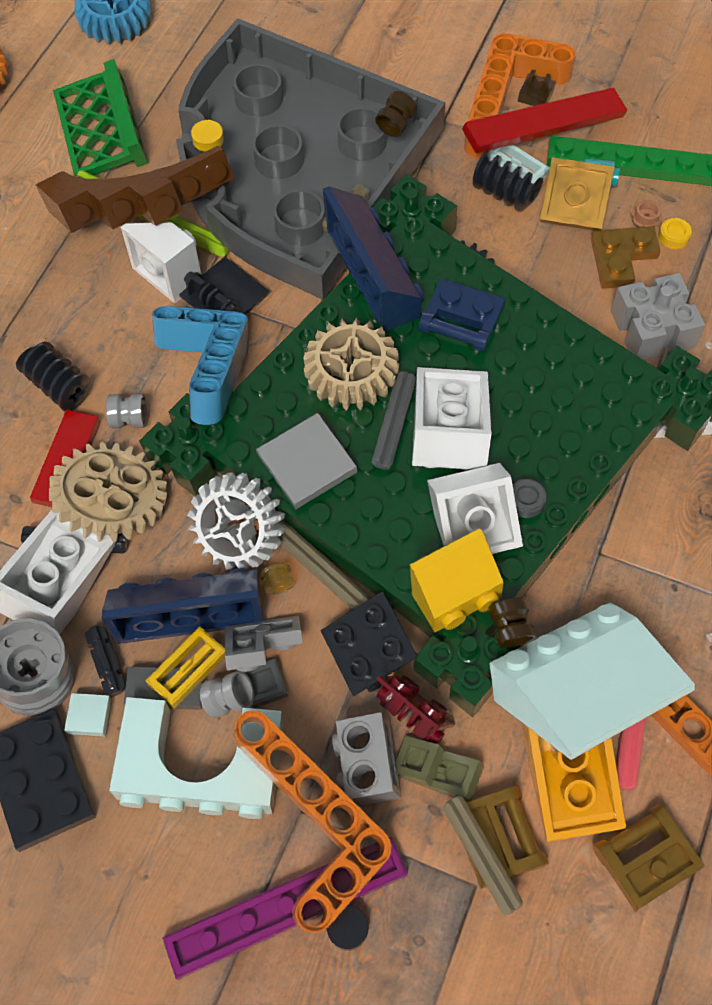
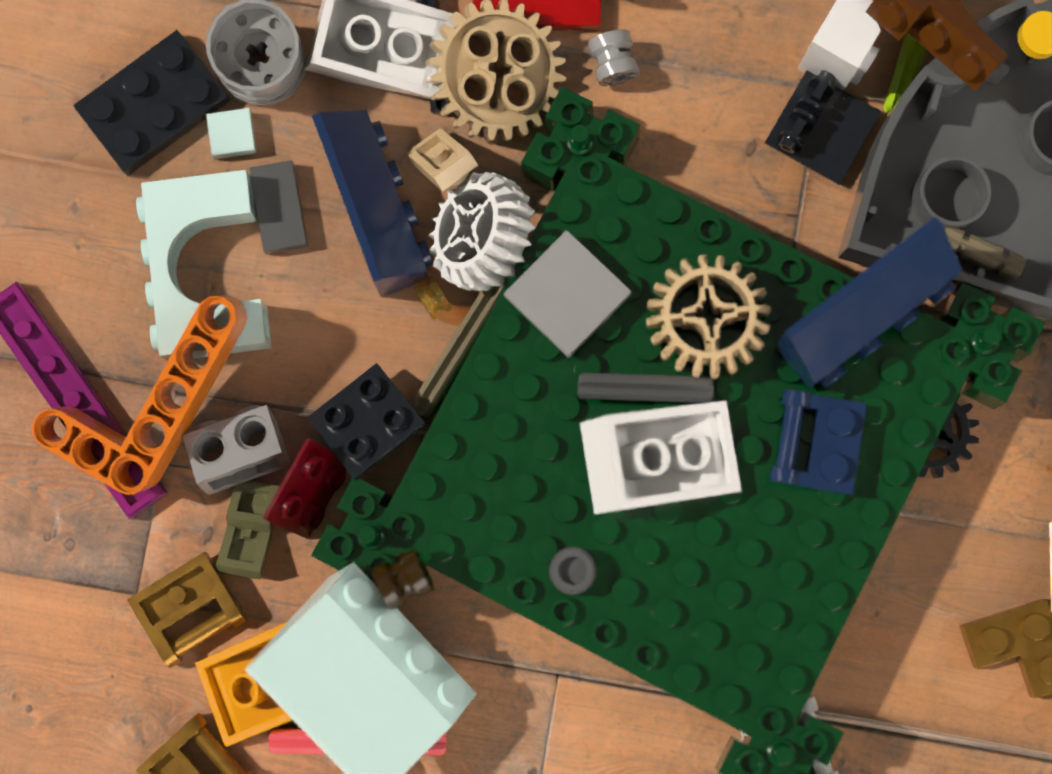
camera: 75 degrees right, 20 degrees up
(105, 660) = (291, 134): black axle -> none
(167, 541) = (442, 160): none -> tan plate
(196, 677) = (333, 243): yellow tile -> none
(222, 695) = (277, 277): light grey wheel -> none
(224, 345) = (740, 151): dark azure beam -> none
(247, 642) = (349, 286): light grey plate -> none
(267, 684) = (307, 314): dark grey tile -> none
(348, 929) = (60, 473): black tile -> none
(456, 581) = (430, 506): yellow slope -> none
(475, 501) = (534, 510): white slope -> none
(483, 855) = (155, 593): dark tan axle -> none
(657, 316) = (915, 705): light grey brick -> none

